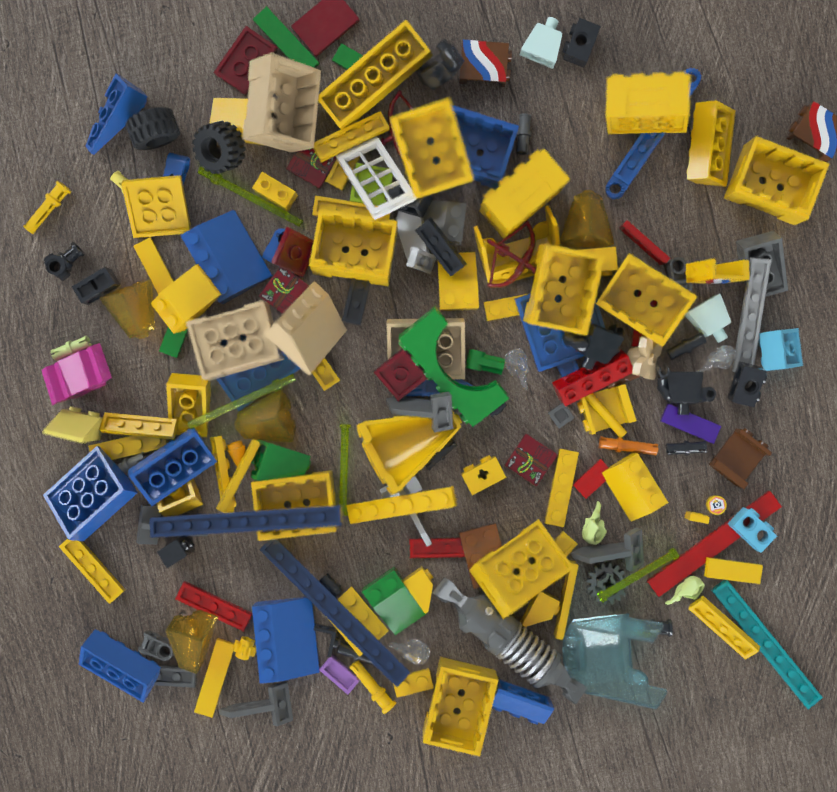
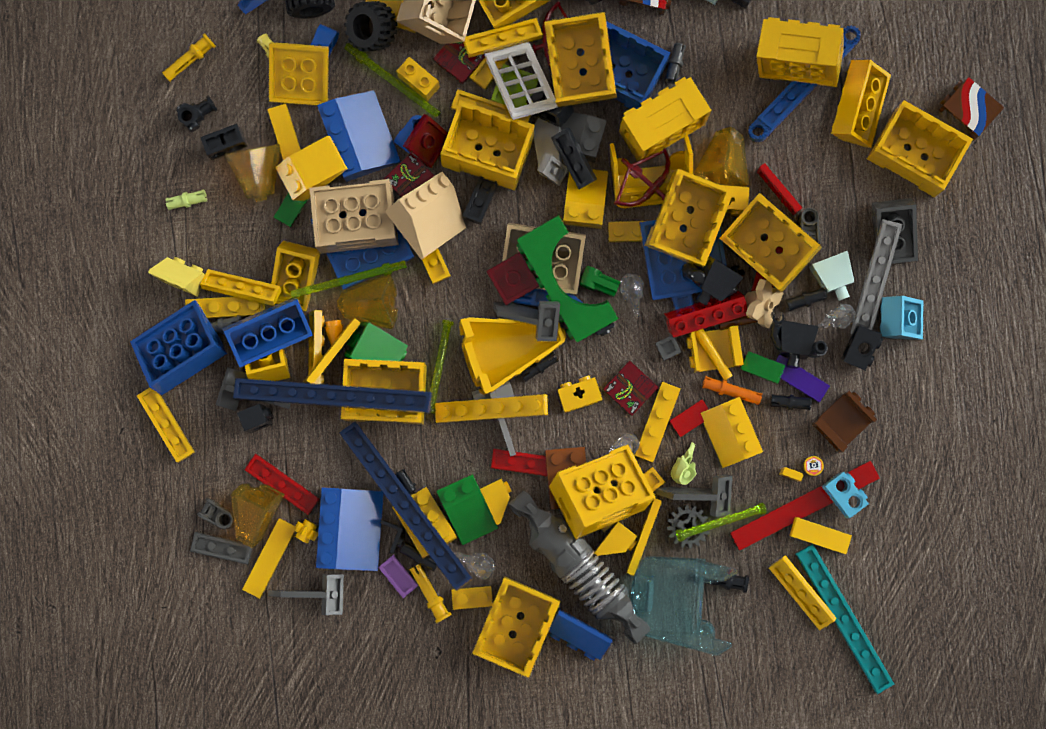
camera: 10 degrees right, 5 degrees down
(76, 374) = (188, 226): dark pink slope -> none
(119, 665) = (174, 527): blue slope -> none
(533, 514) = (625, 439): none -> clear piece
(655, 419) = (763, 367): none -> green tile
(690, 588) = (773, 547): yellowish green piece -> none
(710, 273) = (831, 227): yellow panel -> none

